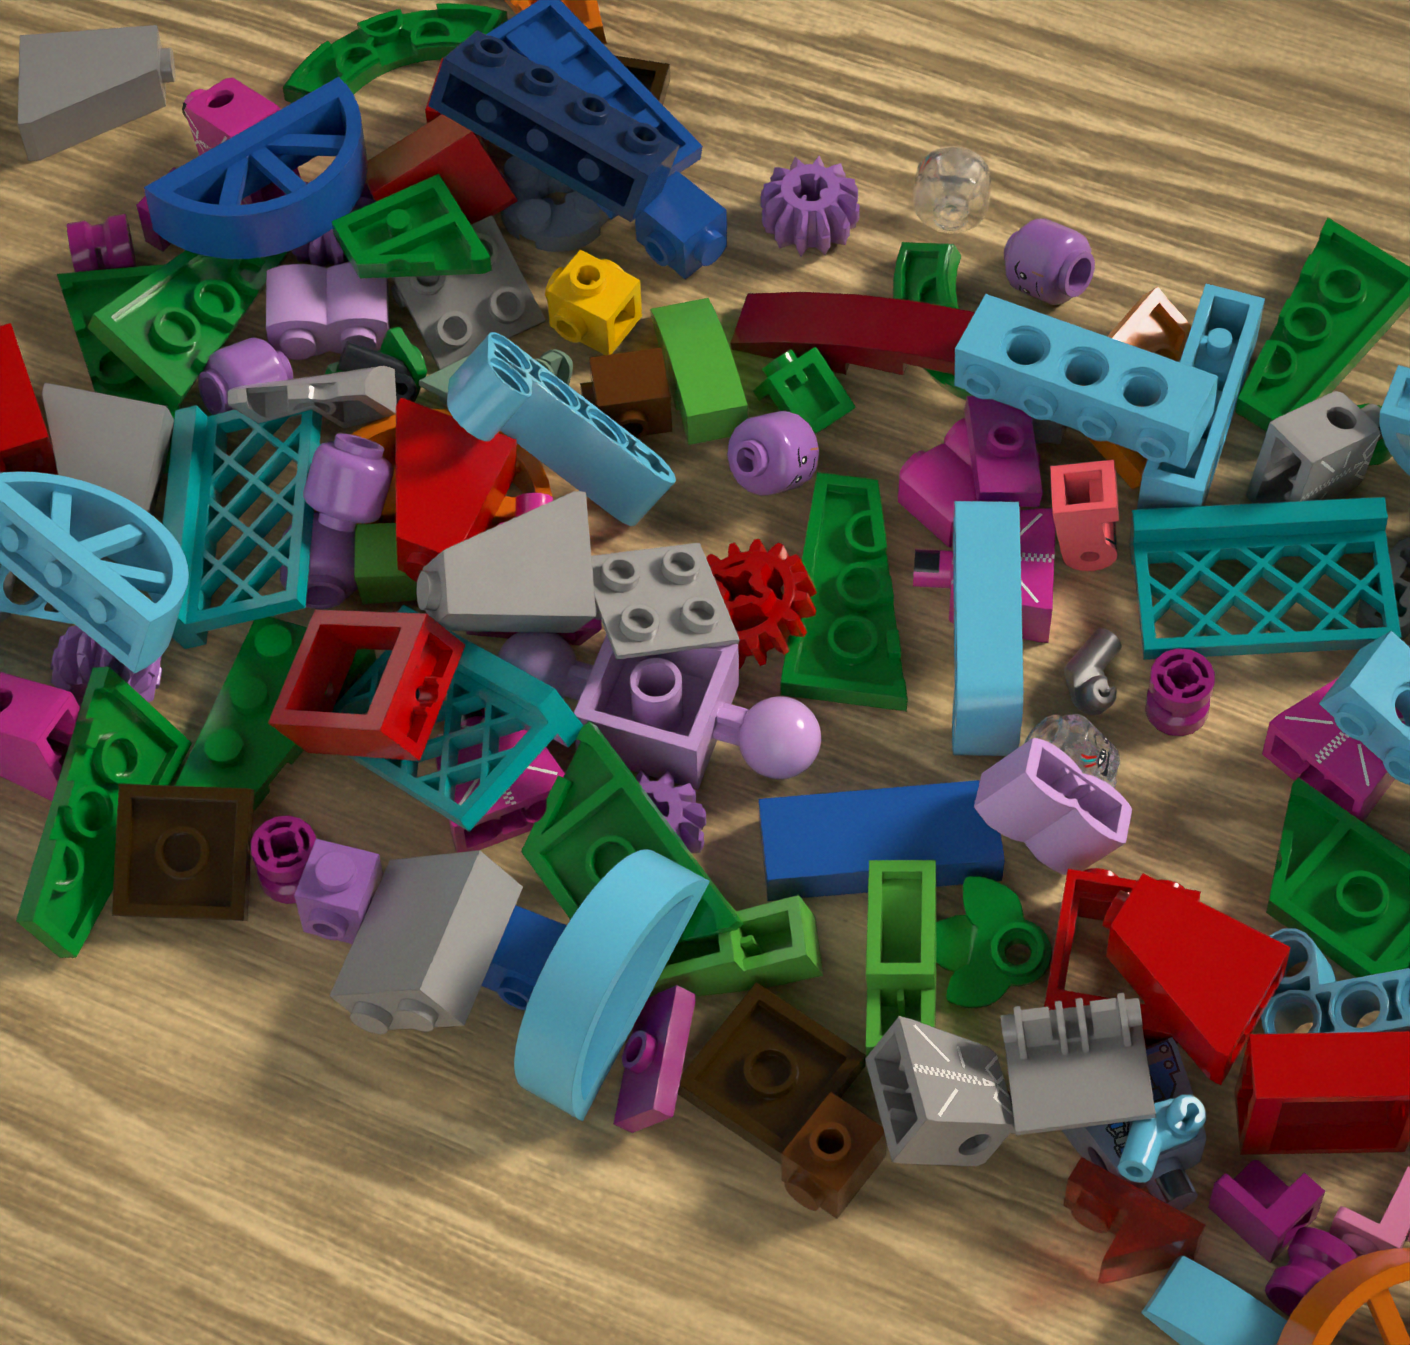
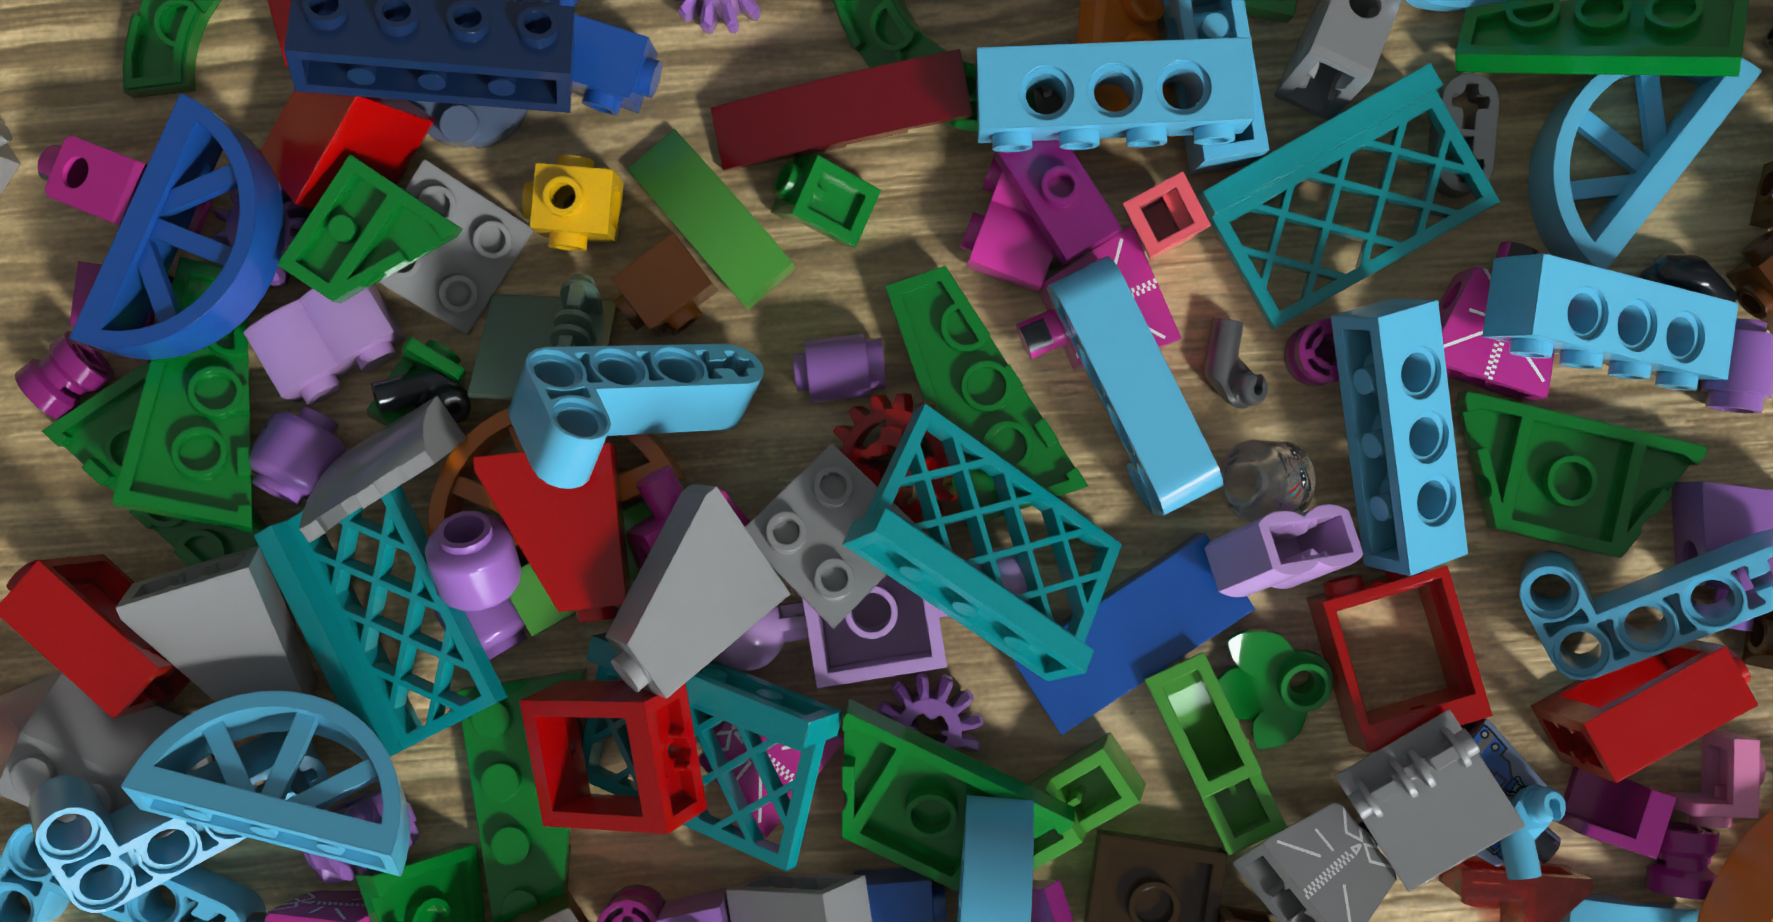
camera: 25 degrees left, 30 degrees up
(740, 515) = (840, 367): none -> medium lavender brick
(754, 687) = (954, 584): none -> teal fence
(773, 453) = (836, 288): medium lavender head -> none
(1184, 786) = (1400, 434): none -> medium azure brick
(1194, 969) = (1499, 666): red slope -> none

